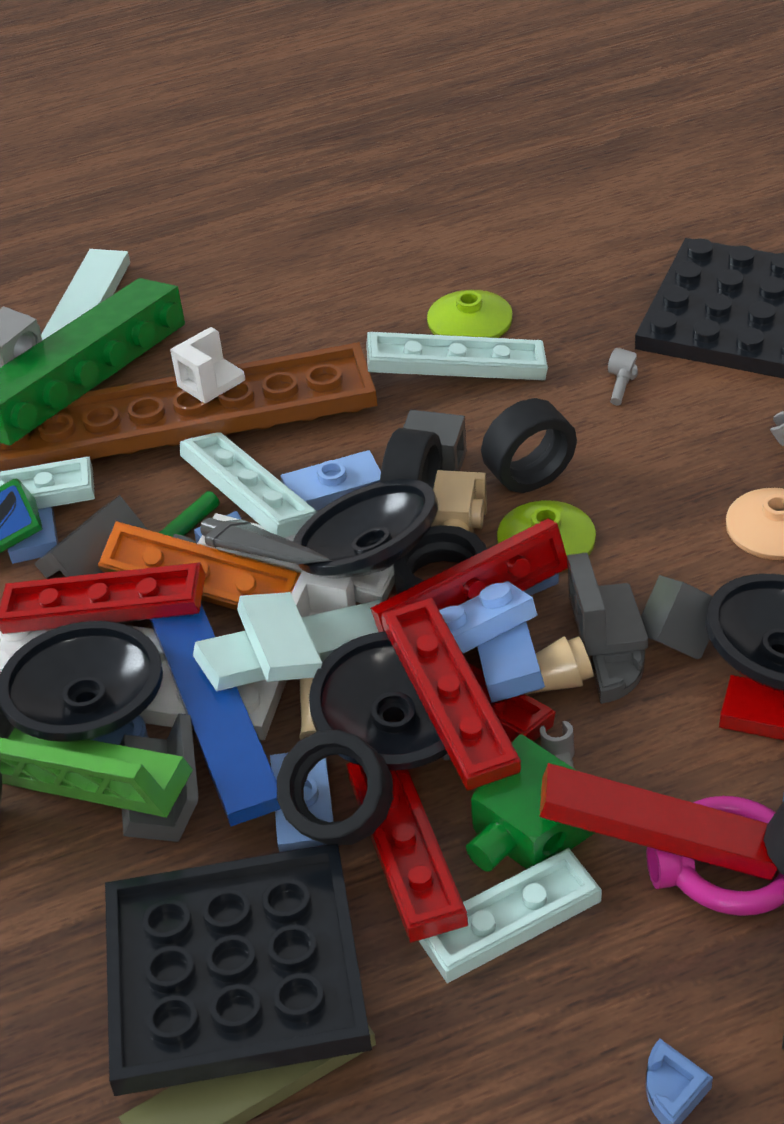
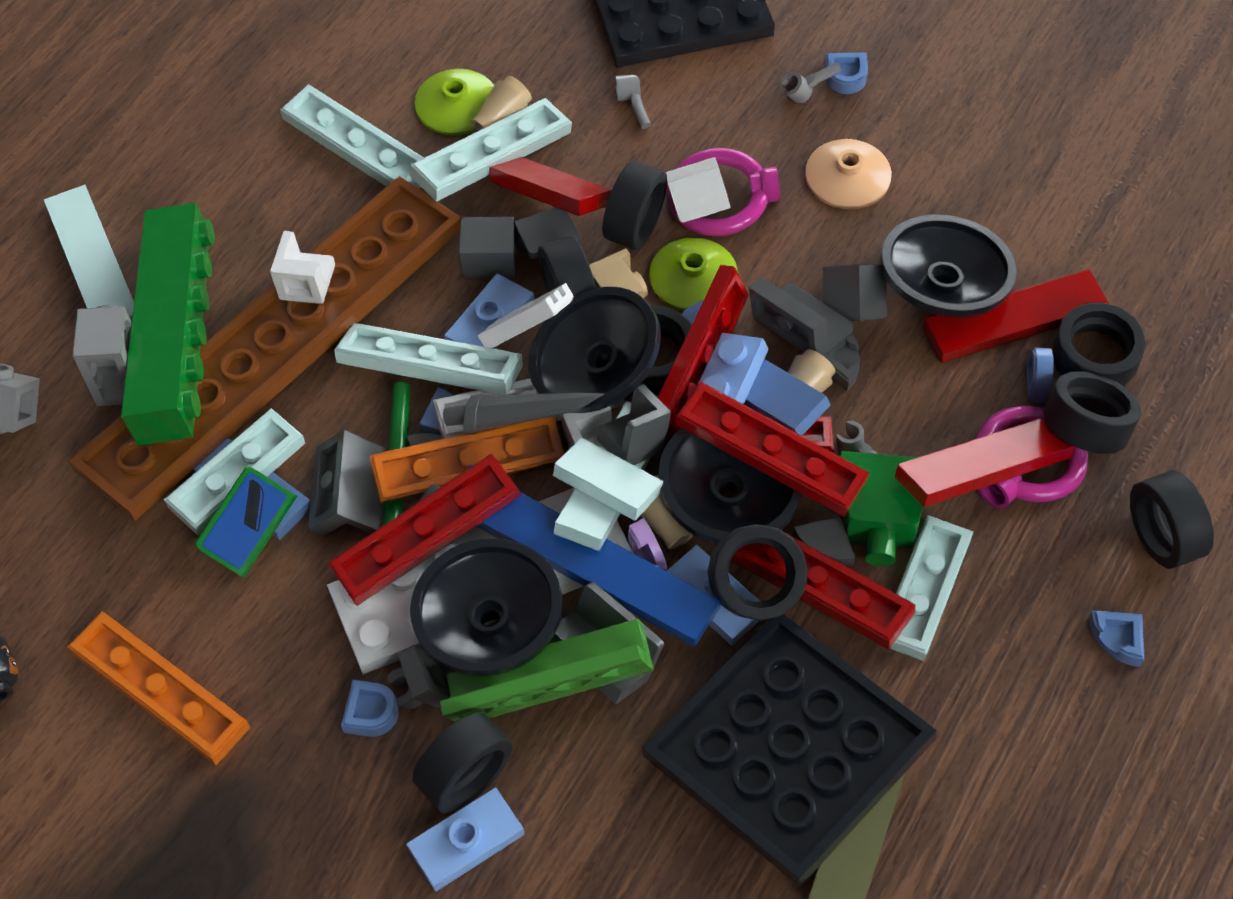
camera: 40 degrees left, 15 degrees up
(279, 722) = (645, 544): none -> lavender tile
(339, 478) = (526, 316): none -> white tile
(343, 615) = (640, 432): none -> dark grey panel
(354, 298) = (350, 136): none -> light aqua tile
(371, 422) = (488, 247): none -> dark grey panel
(449, 817) = (829, 538): none -> dark grey tile
(467, 397) = (550, 186): none -> red tile
(500, 324) = (503, 100): none -> tan cone
(603, 463) = (697, 190): none -> white panel
(674, 491) = (763, 185): none -> dark pink piece

